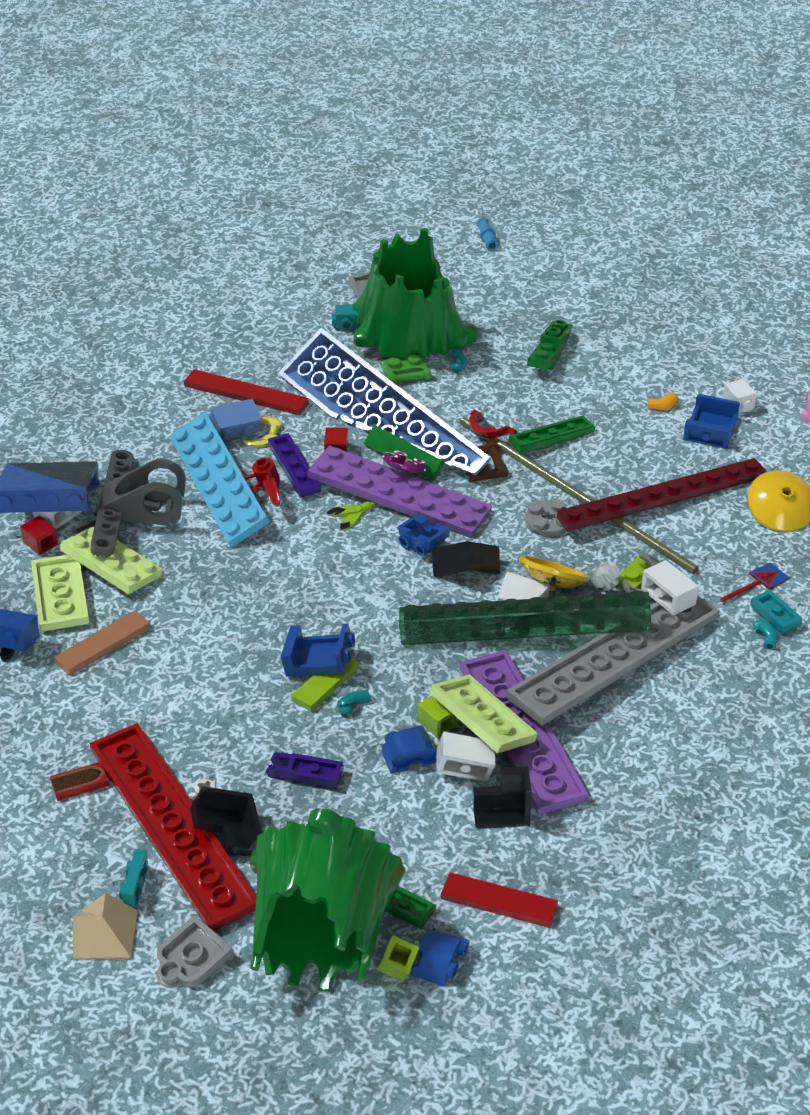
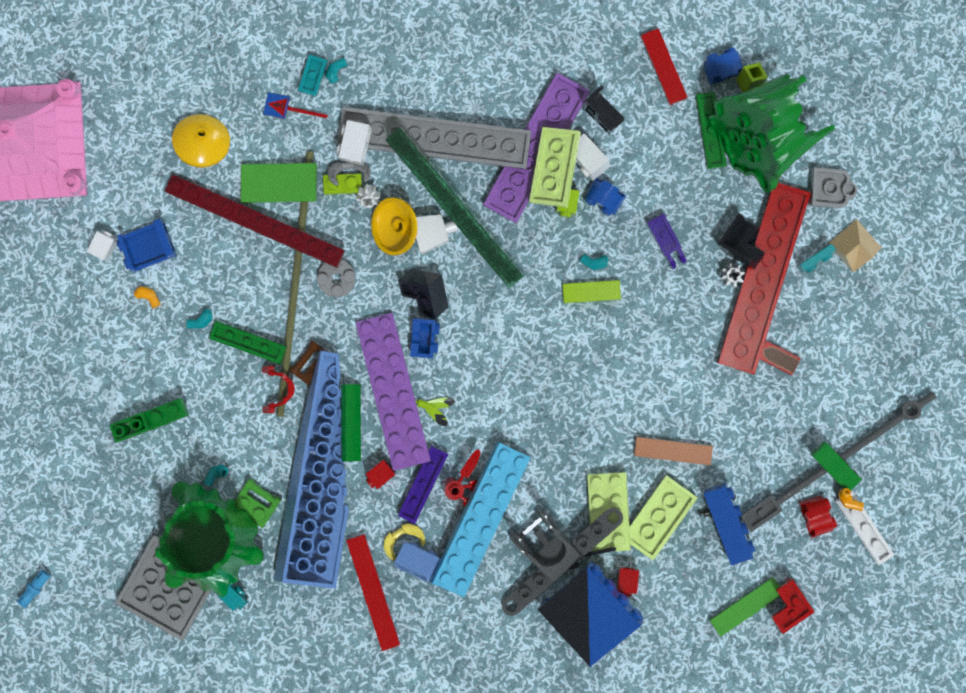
camera: 135 degrees left, 45 degrees up
(317, 653) = (578, 310): blue panel -> none
(401, 463) = (370, 404): magenta dish -> none
(604, 418) = (202, 321): none -> teal arm
(684, 529) = (278, 183): none -> bright green tile

